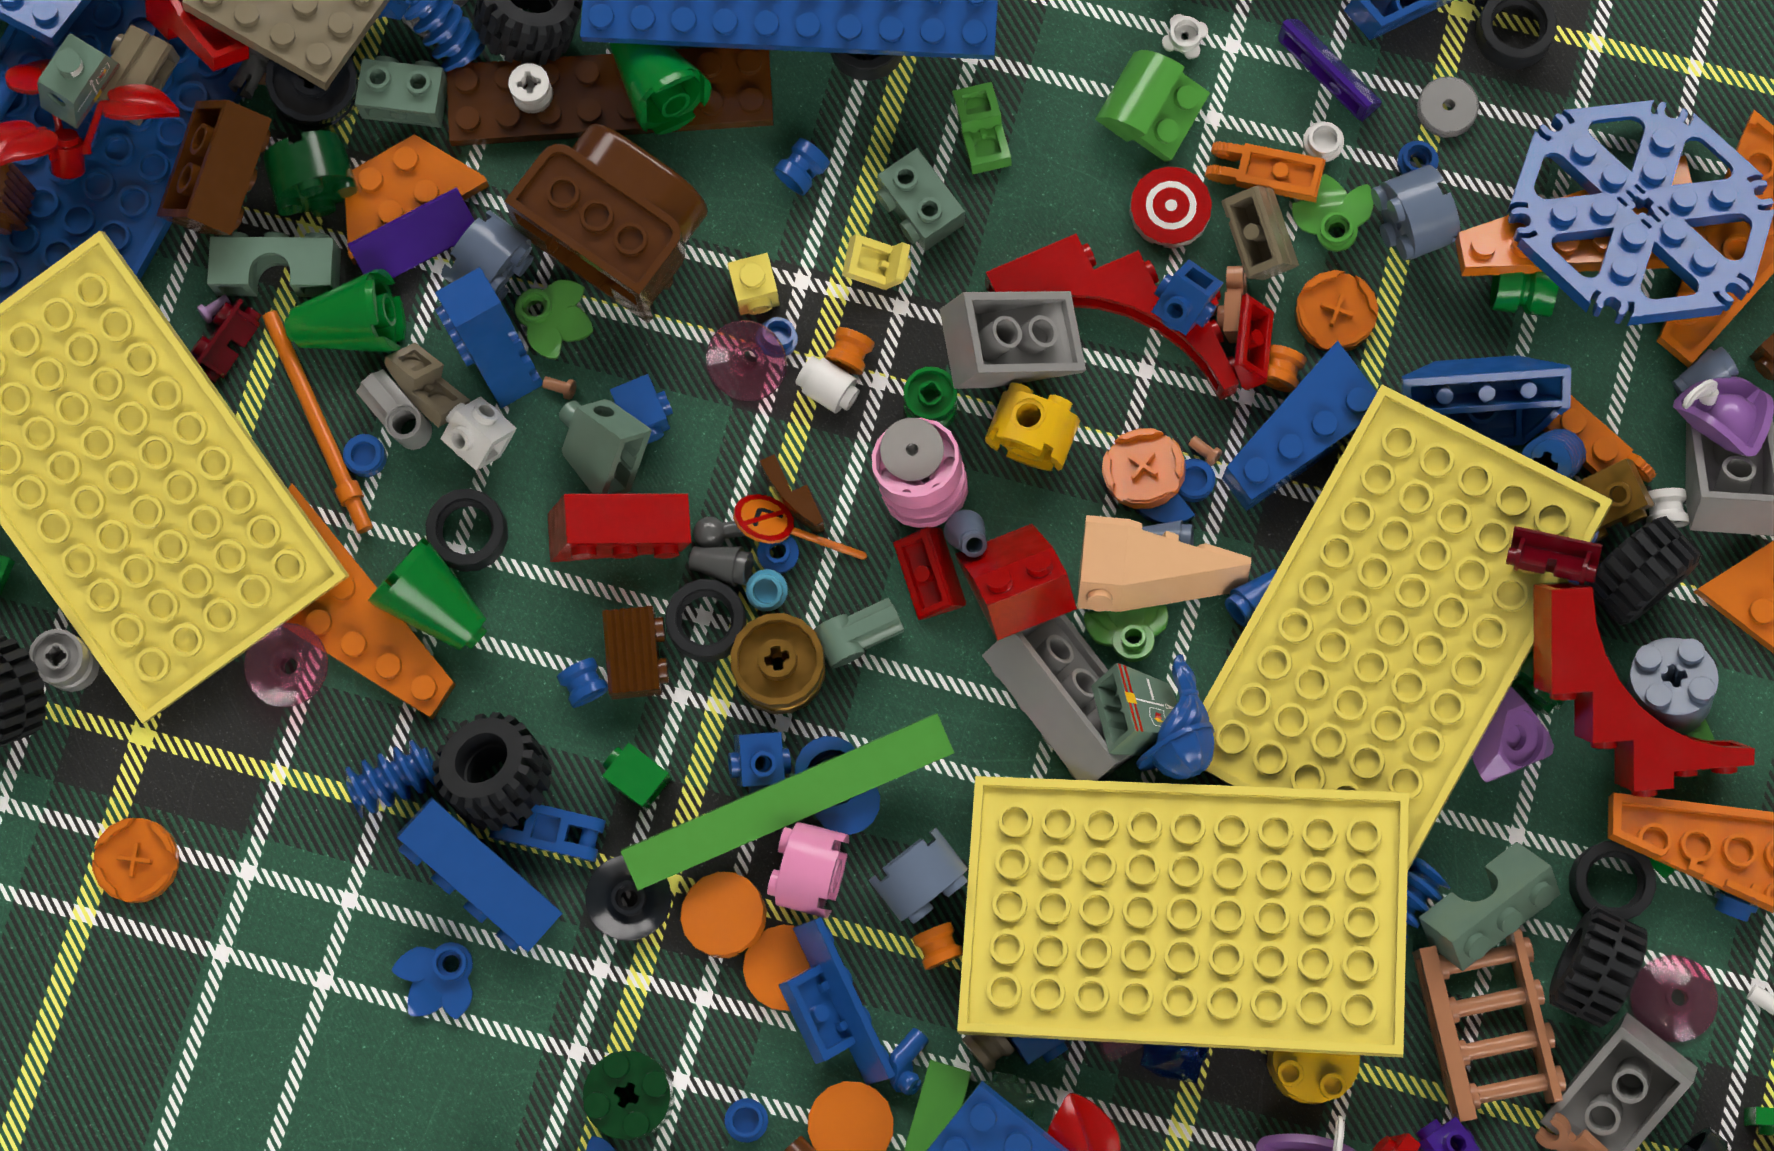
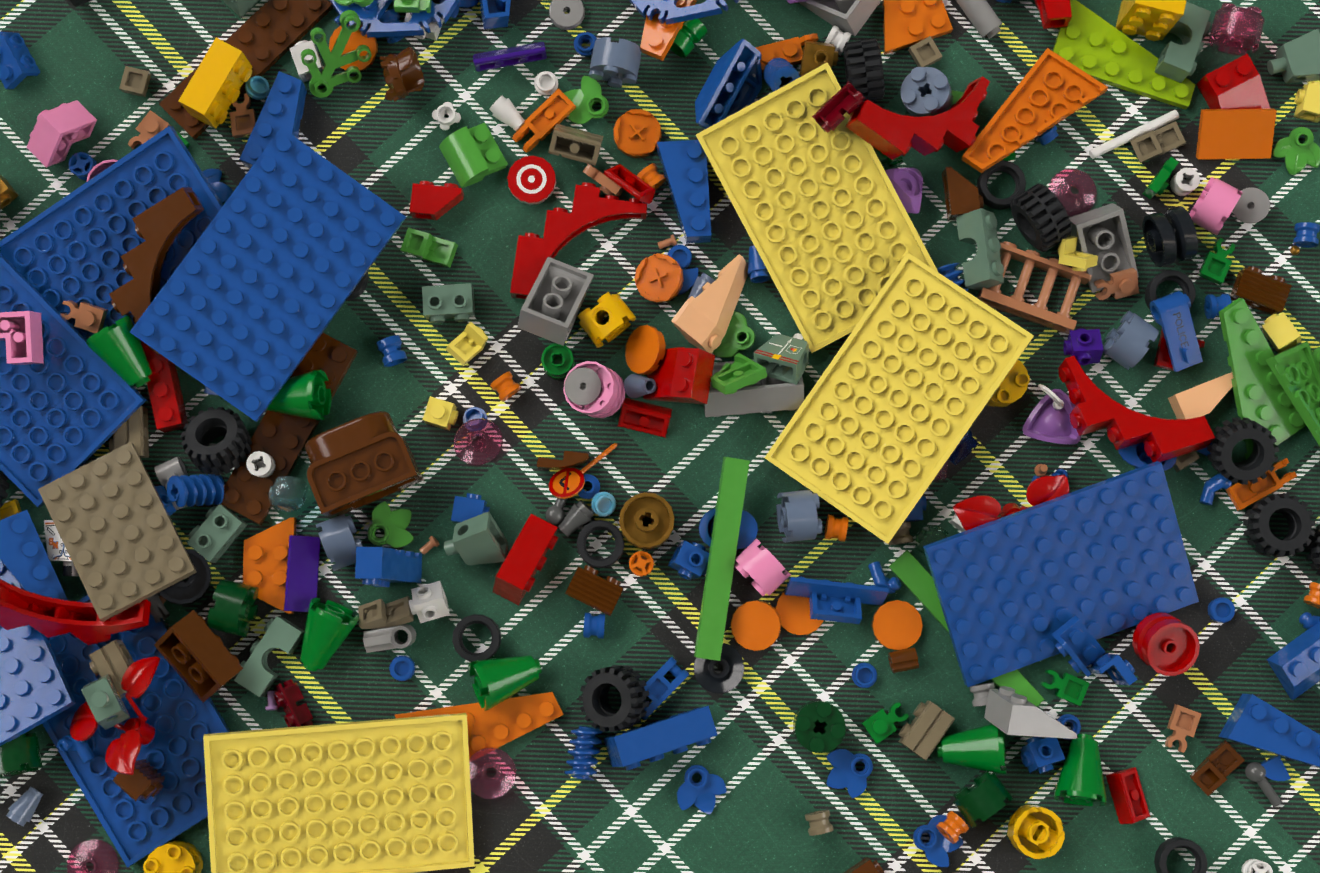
camera: 65 degrees left, 5 degrees up
(347, 490) = (416, 687): orange bar -> none
(511, 149) = (288, 493): none -> clear light blue hair
(635, 775) = (658, 627): green brick -> none
(707, 689) = (640, 560): none -> orange wheel
(828, 384) = (516, 408): white brick -> none
(847, 637) = (654, 477): sand green piece -> none
(1024, 510) = (645, 350): none -> orange tile
(1050, 93) = (433, 201): none -> red slope
(1076, 666) = (738, 375): none -> bright green wing
(1186, 298) = (590, 201): blue brick -> none
(1186, 735) = (811, 341): blue piece -> none
(1243, 113) = (507, 113): none -> white cone
(1555, 829) = (959, 194): none -> reddish brown slope
(1569, 1049) = (1069, 256): none -> light yellow bracket
(1736, 648) = (925, 52): none -> dark tan plate

